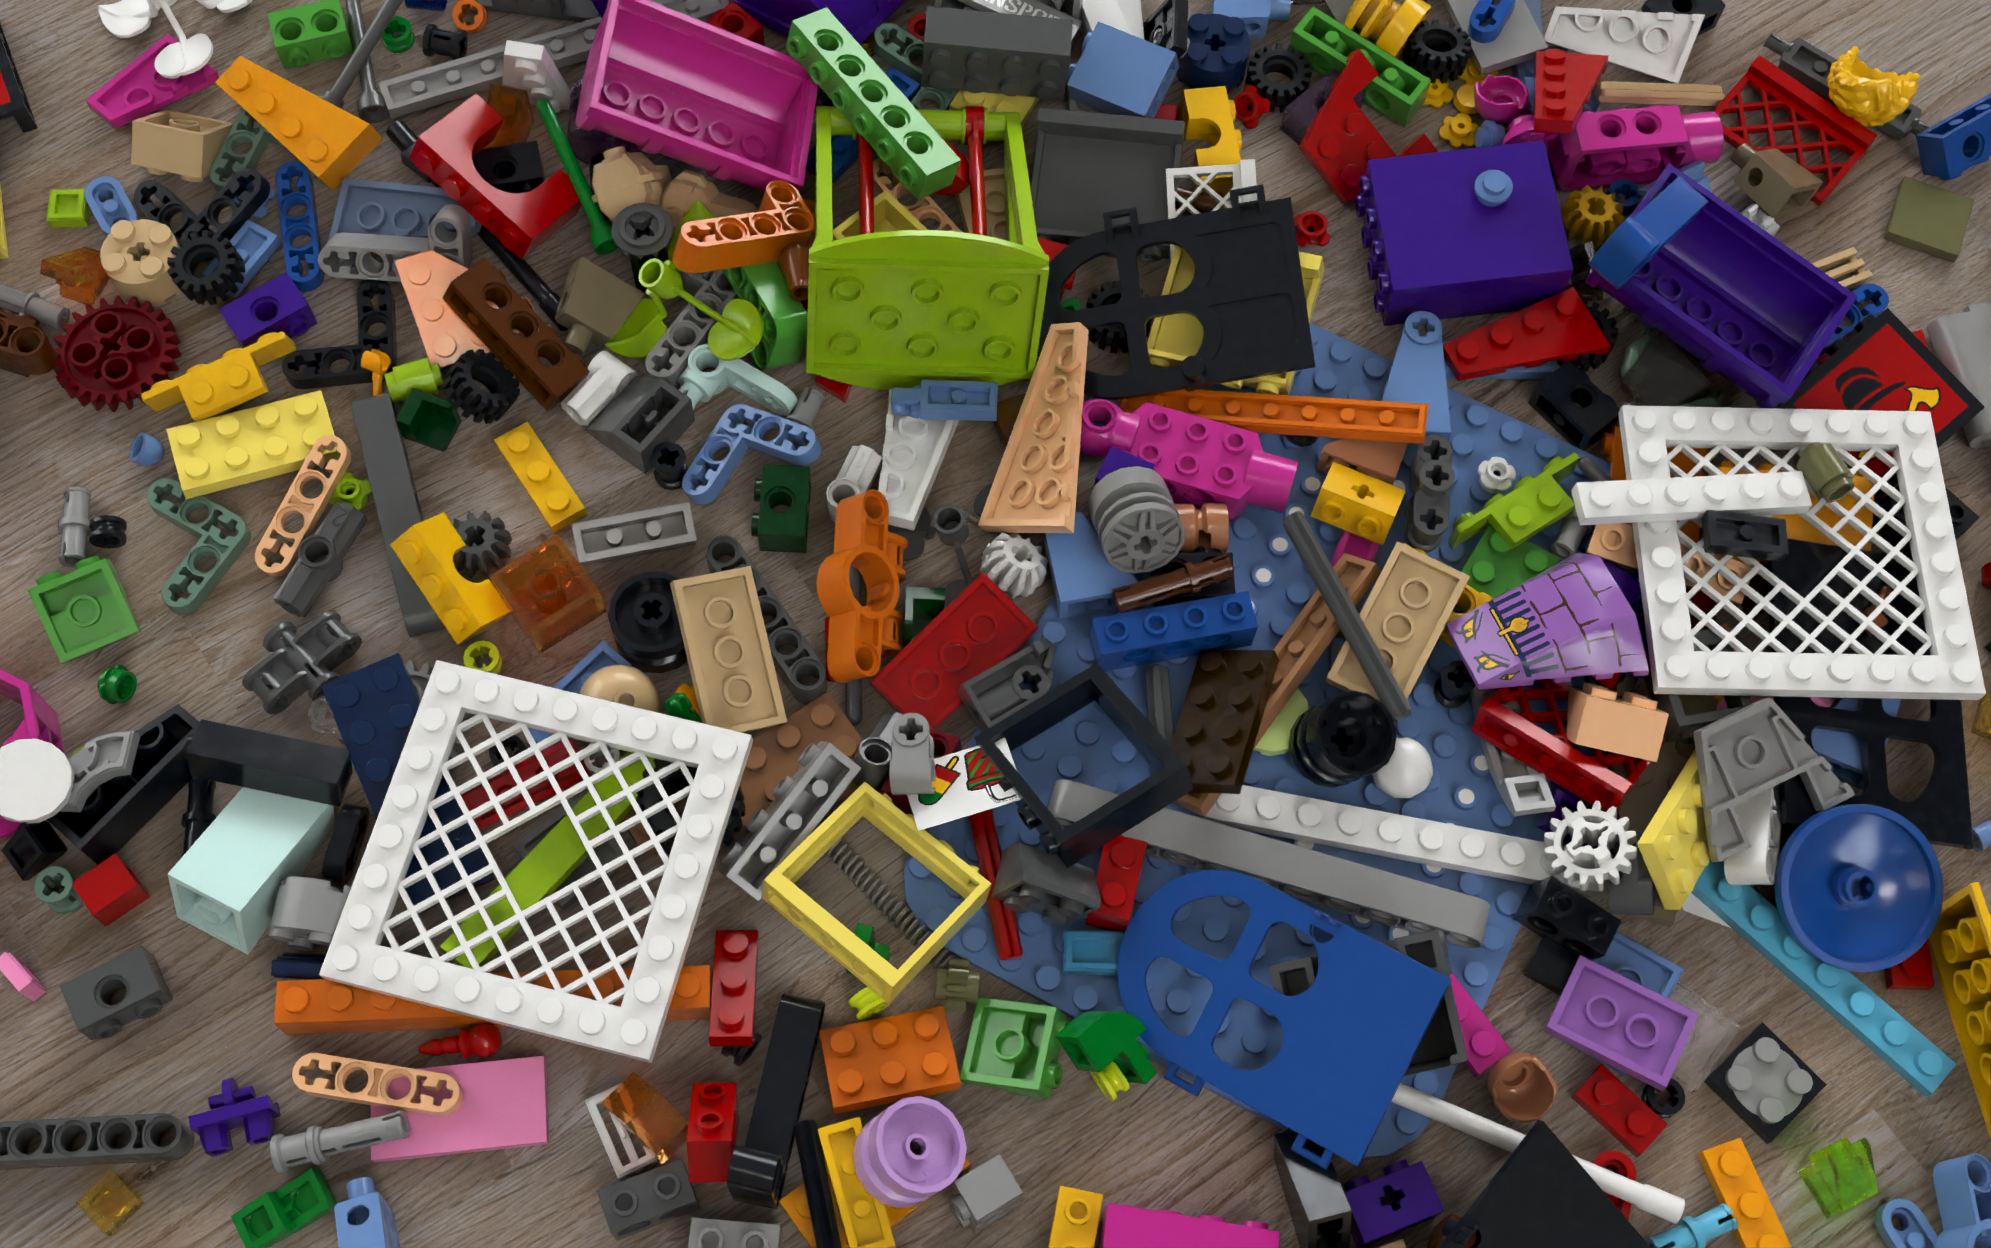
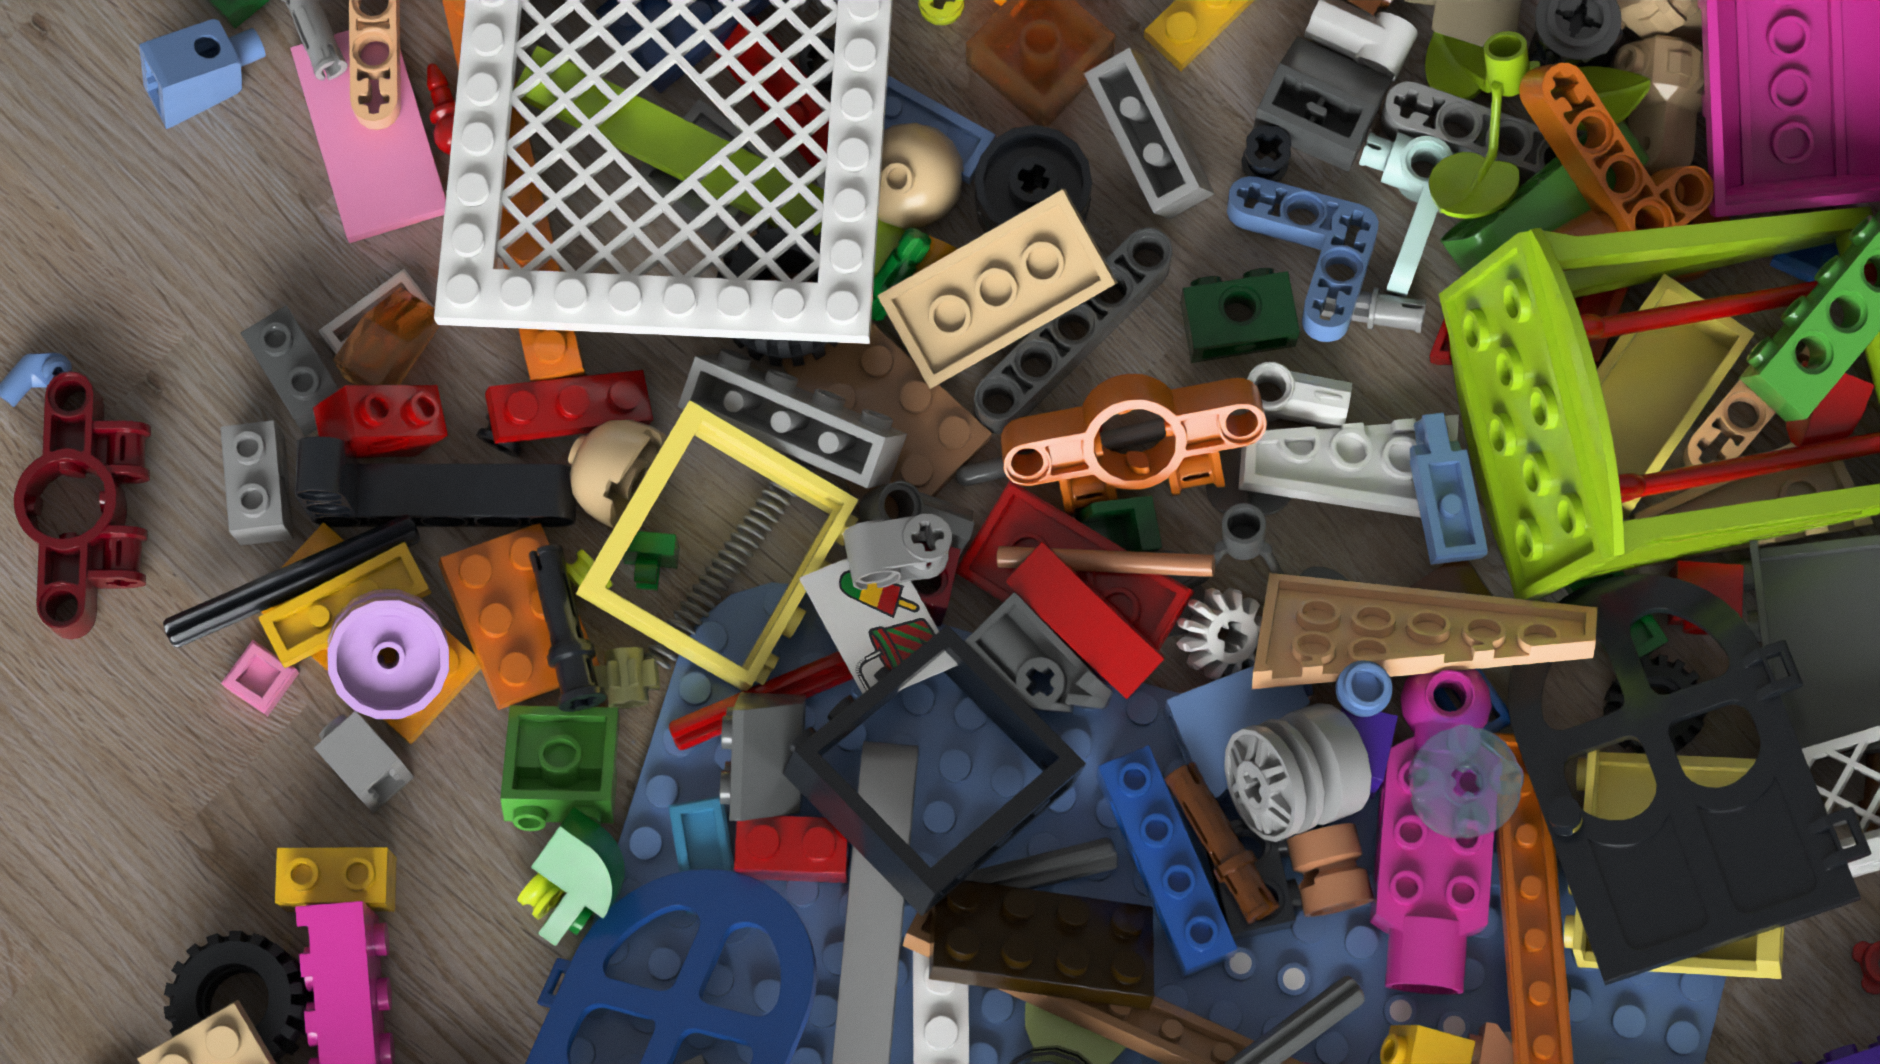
camera: 85 degrees right, 10 degrees up
(792, 961) = (611, 466): none -> tan cylinder
(934, 1016) = (570, 651): none -> black pin
(949, 624) = (1118, 561): none -> nougat bar
(991, 642) = (1085, 620): none -> red slope
(1089, 460) = (1363, 688): none -> medium blue plate
(1165, 399) = (1497, 778): none -> clear light blue plate

